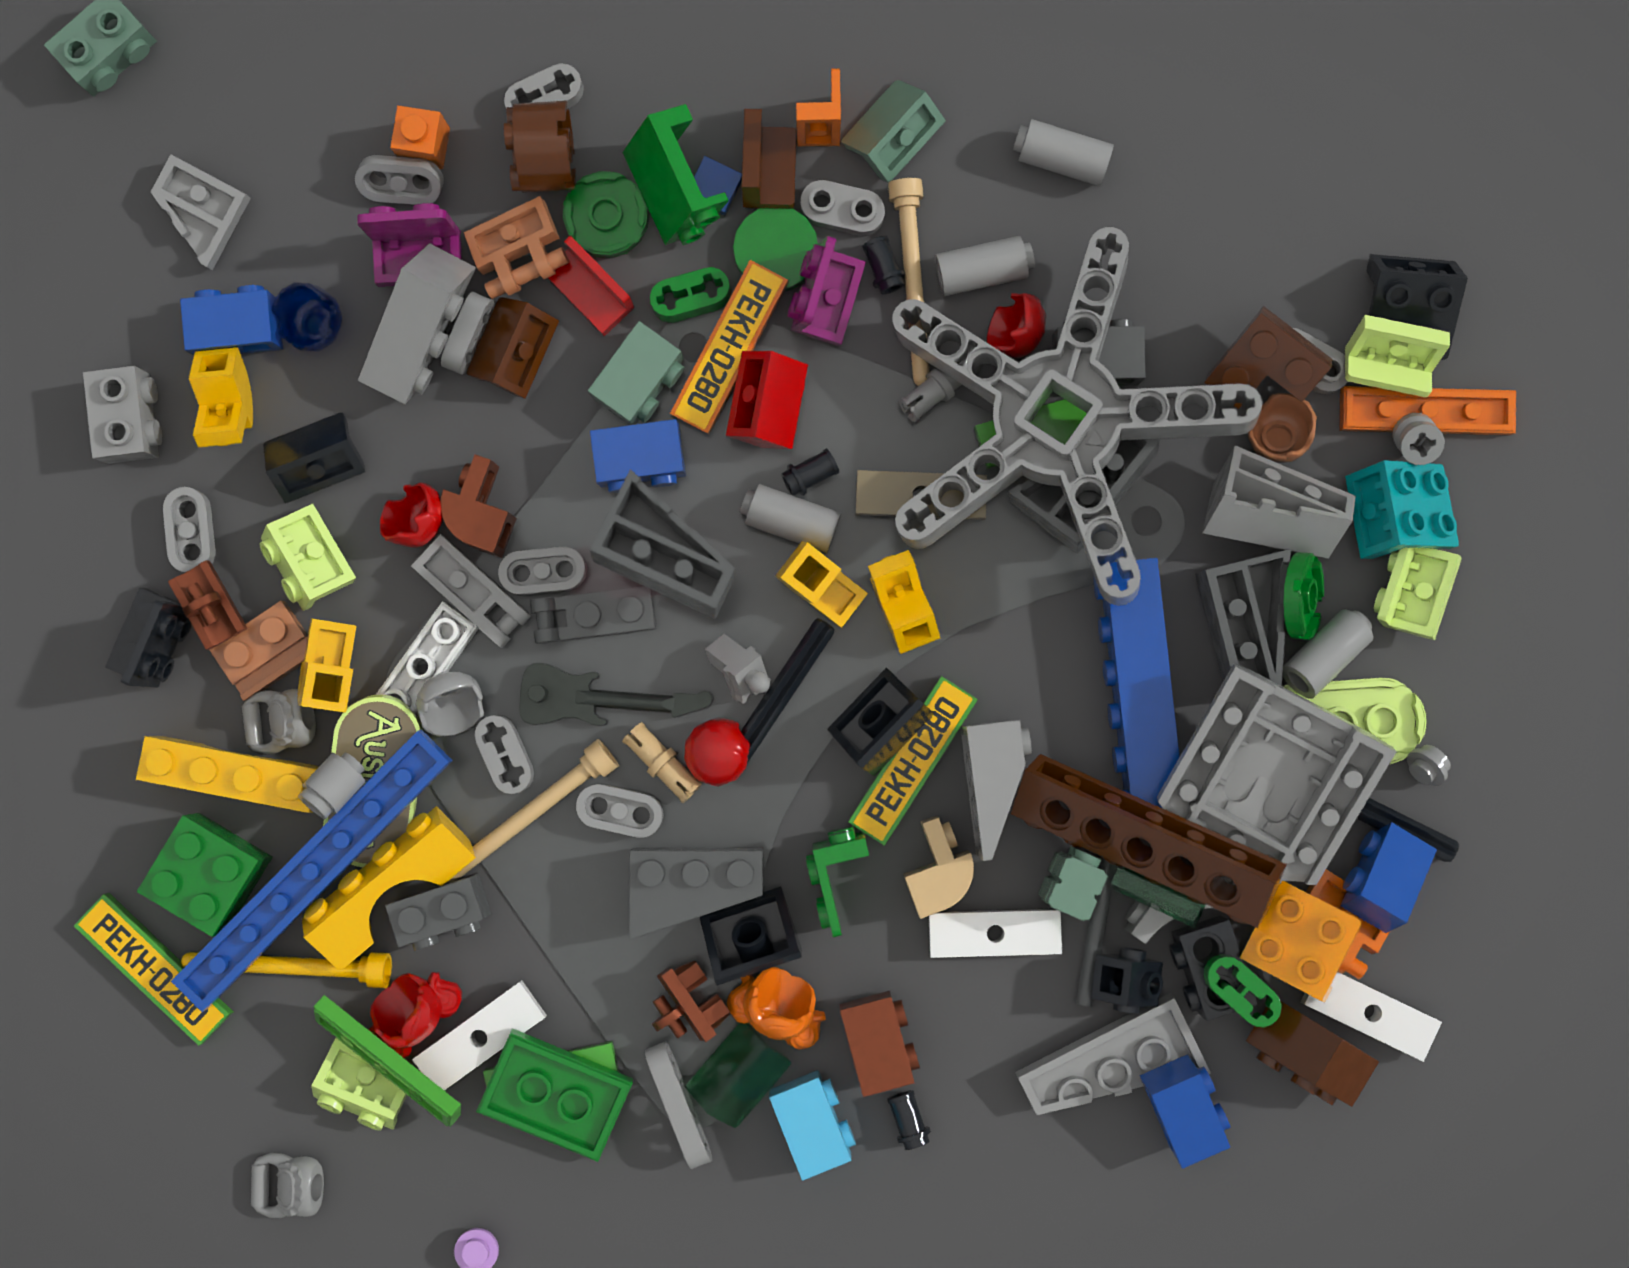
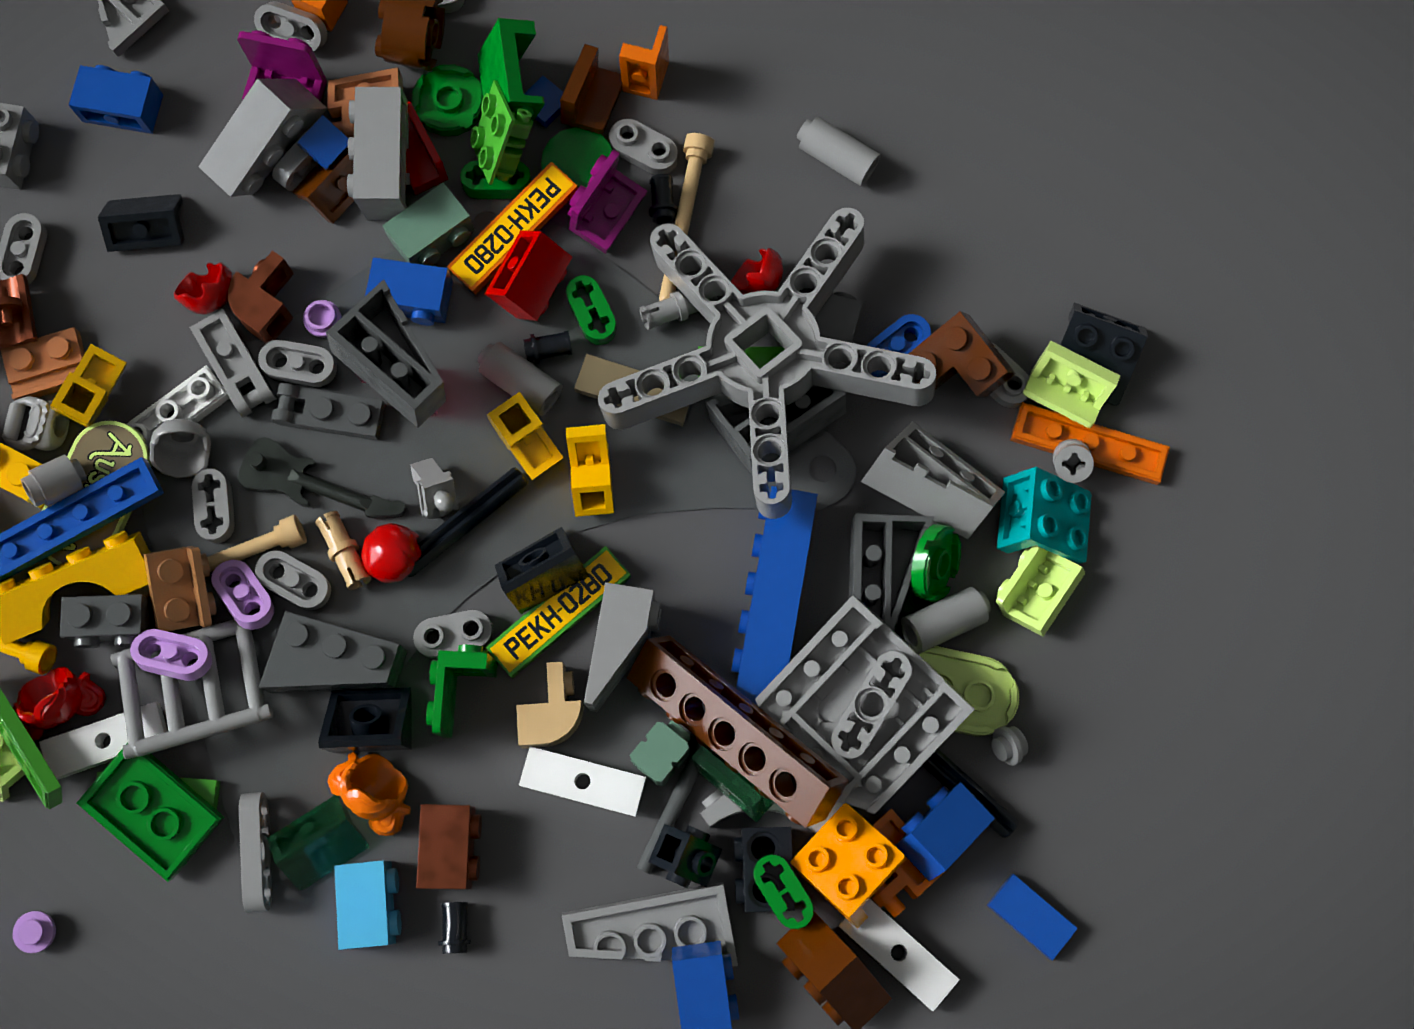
camera: 15 degrees right, 10 degrees down
(222, 396) = (88, 151): yellow brick -> none
(305, 556) = (107, 297): yellowish green bracket -> none
(307, 316) = (178, 109): clear blue hair -> none
(490, 312) = (324, 142): none -> blue tile
(505, 857) = (179, 588): none -> medium nougat bracket
(526, 931) = (174, 656): none -> lavender plate
(551, 511) = (320, 317): none -> lavender plate
(558, 307) = (379, 151): none -> light grey wedge
(574, 843) = (243, 597): none -> lavender plate
(597, 987) = (218, 721): none -> light grey bar
(685, 249) = (500, 136): none -> bright green hinge
(701, 1018) = (302, 780): copper hips -> none
(808, 817) = (452, 632): none -> light grey plate
(852, 409) = (599, 307): none -> green beam
(894, 129) = (705, 97): sand green panel -> none
(984, 265) = (744, 221): light grey brick -> none
(1188, 361) = (894, 340): none -> blue plate
(1283, 428) = (958, 419): nougat hair -> none
(1305, 746) = (846, 724): none -> light grey beam
(1496, 935) = (1032, 917): none -> blue tile

